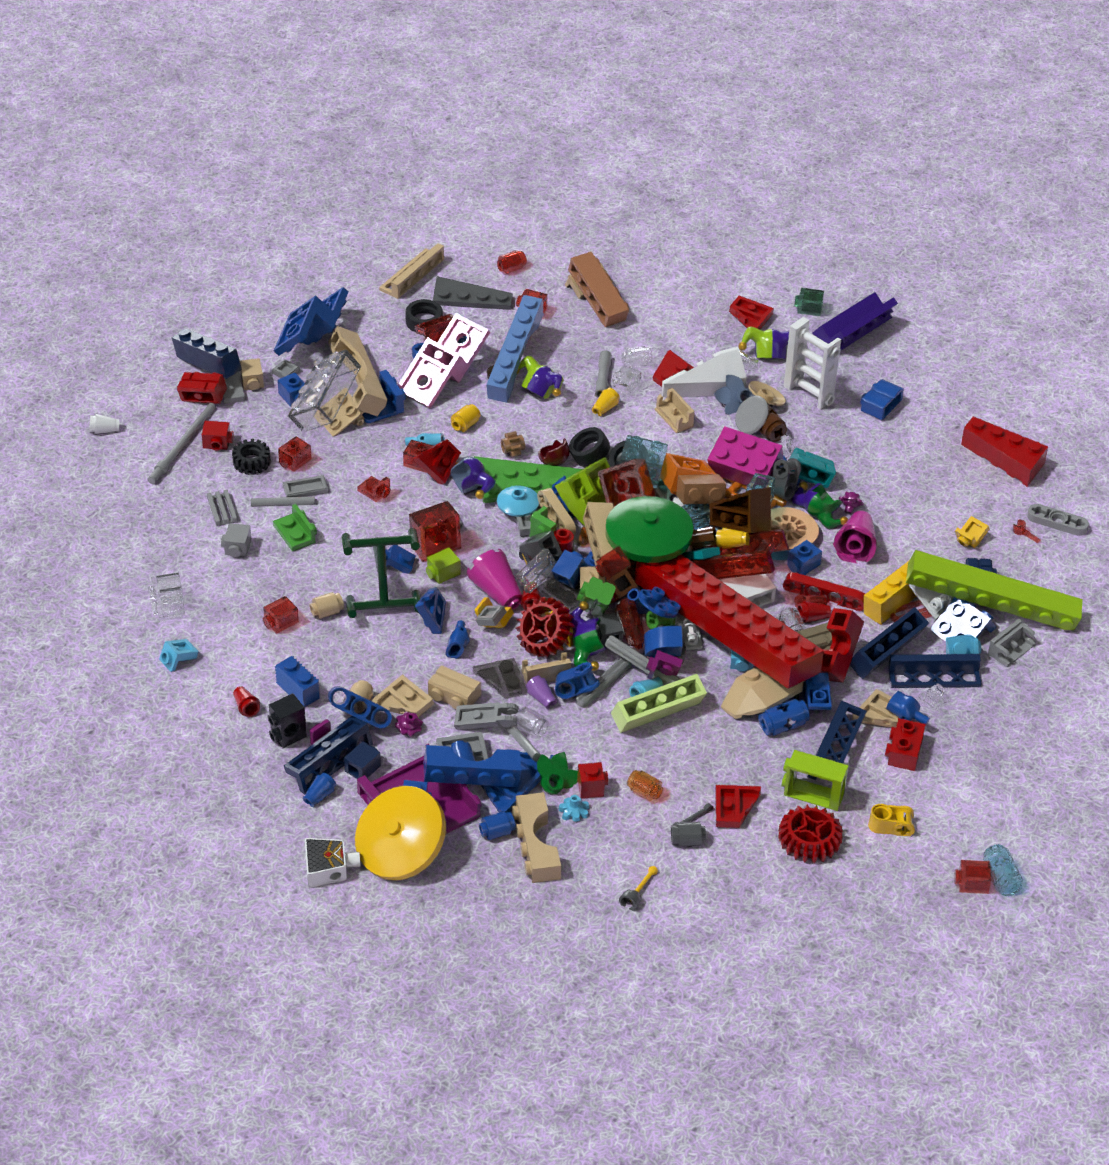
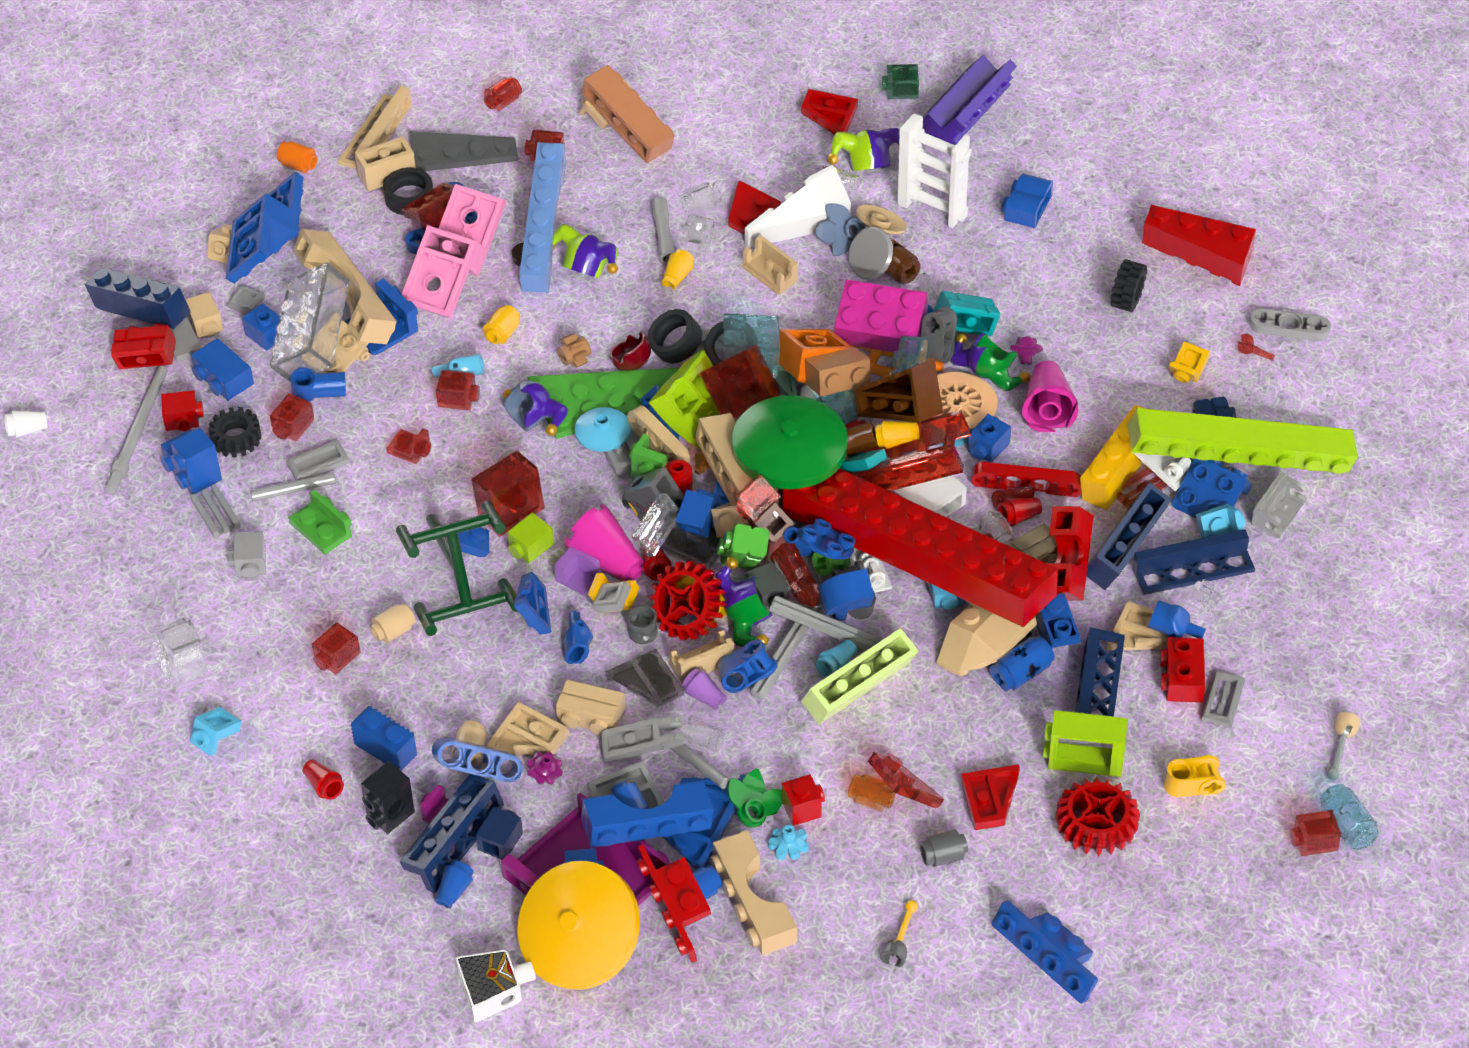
camera: 10 degrees left, 5 degrees up
(214, 469) = (192, 460): none -> blue brick
(254, 413) = (221, 369): none -> blue brick
(276, 327) = (219, 243): none -> tan bracket
(313, 434) = (309, 385): none -> blue piece
(349, 279) = (297, 156): none -> orange brick
(409, 290) = (381, 160): none -> tan brick
(438, 460) = (485, 392): red wing -> none
(470, 593) = (576, 570): none -> medium lavender panel
(481, 826) = (680, 896): none -> red bracket
(508, 639) = (641, 626): none -> dark grey wheel
(665, 663) = (856, 621): magenta bracket -> none
(671, 782) = (903, 781): none -> clear red wing
(708, 807) = (957, 806): dark grey hinge -> none
(748, 918) = (1049, 947): none -> blue bracket
(923, 783) = (1218, 718): none -> light grey tile
(940, 469) = (1128, 285): none -> black tyre
(1017, 811) = (1341, 728): none -> hinge

